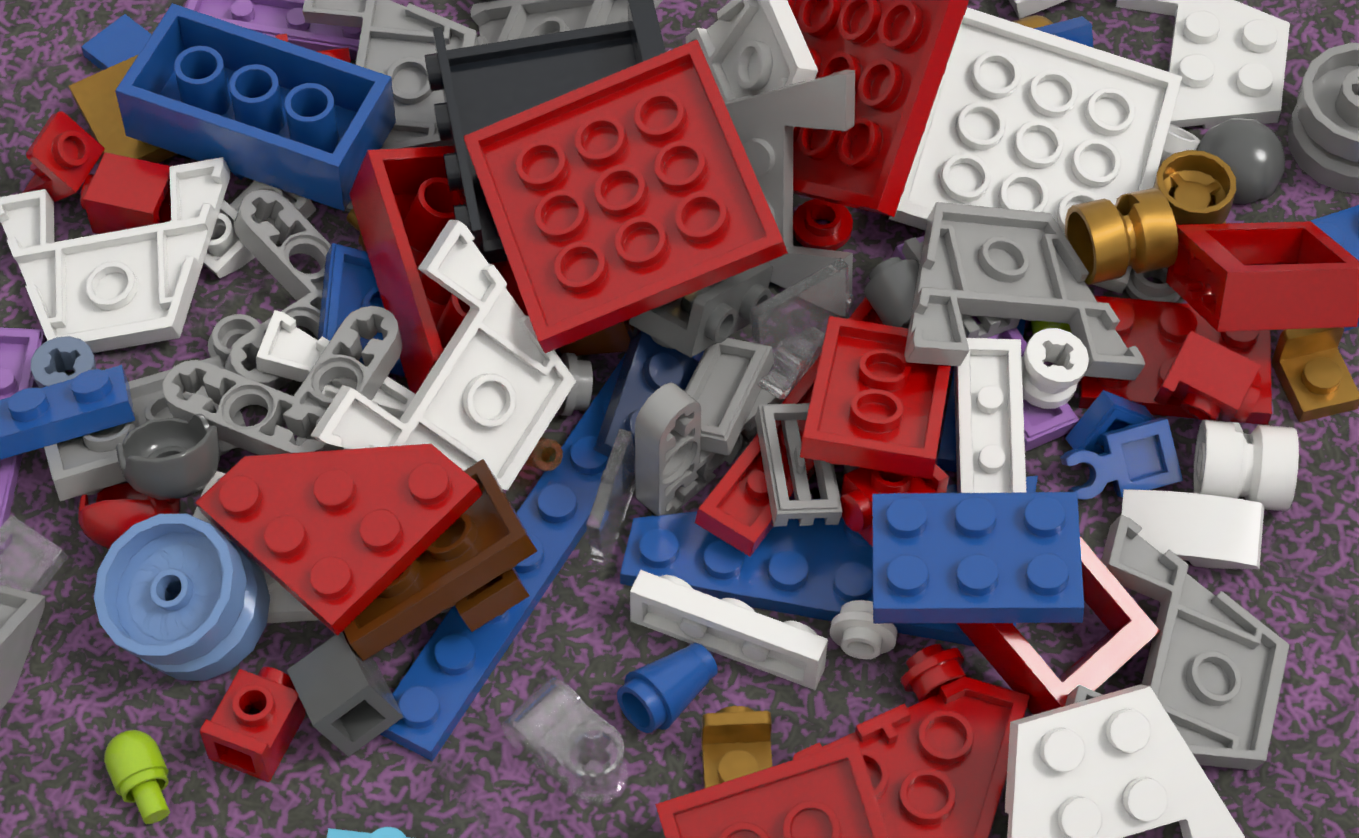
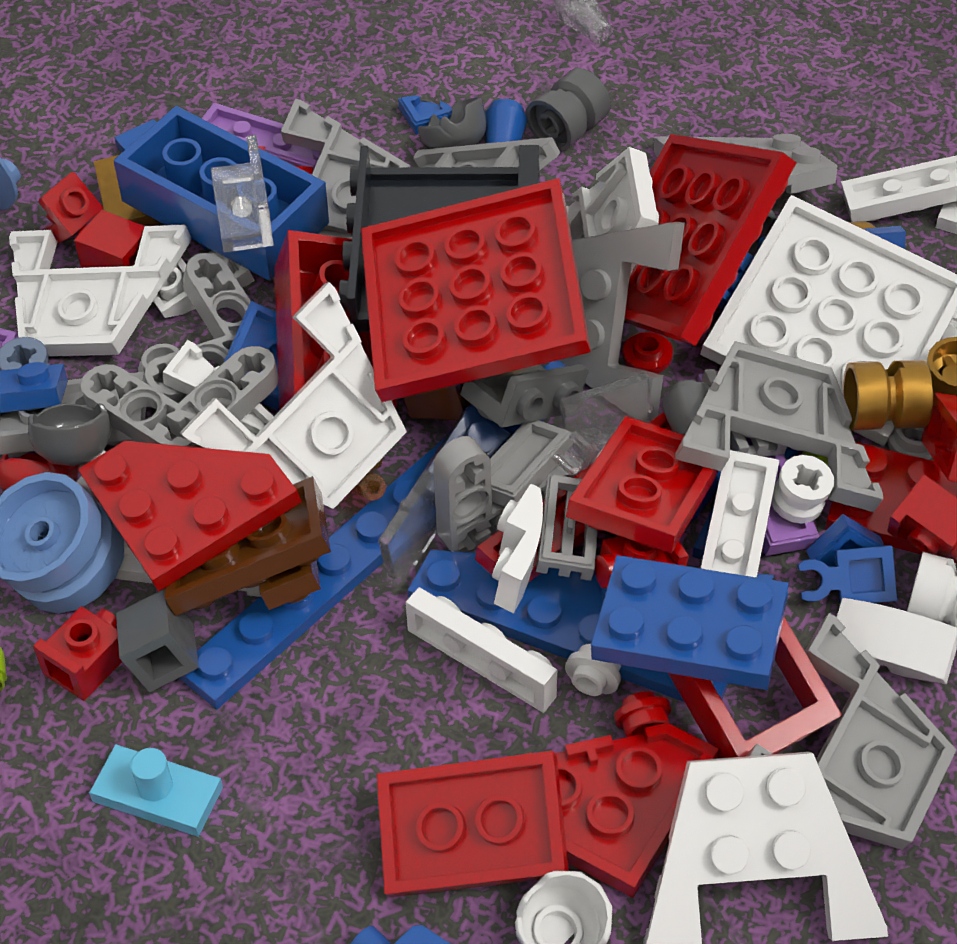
camera: 15 degrees right, 5 degrees down
(302, 121) = (242, 203): none -> clear panel
(566, 735) = (327, 715): clear piece -> none
(581, 392) = (412, 442): light grey plate -> none
(664, 688) = (418, 685): blue cone -> none
(735, 743) = (461, 737): pearl gold bracket -> none
(754, 501) = (522, 530): none -> white slope

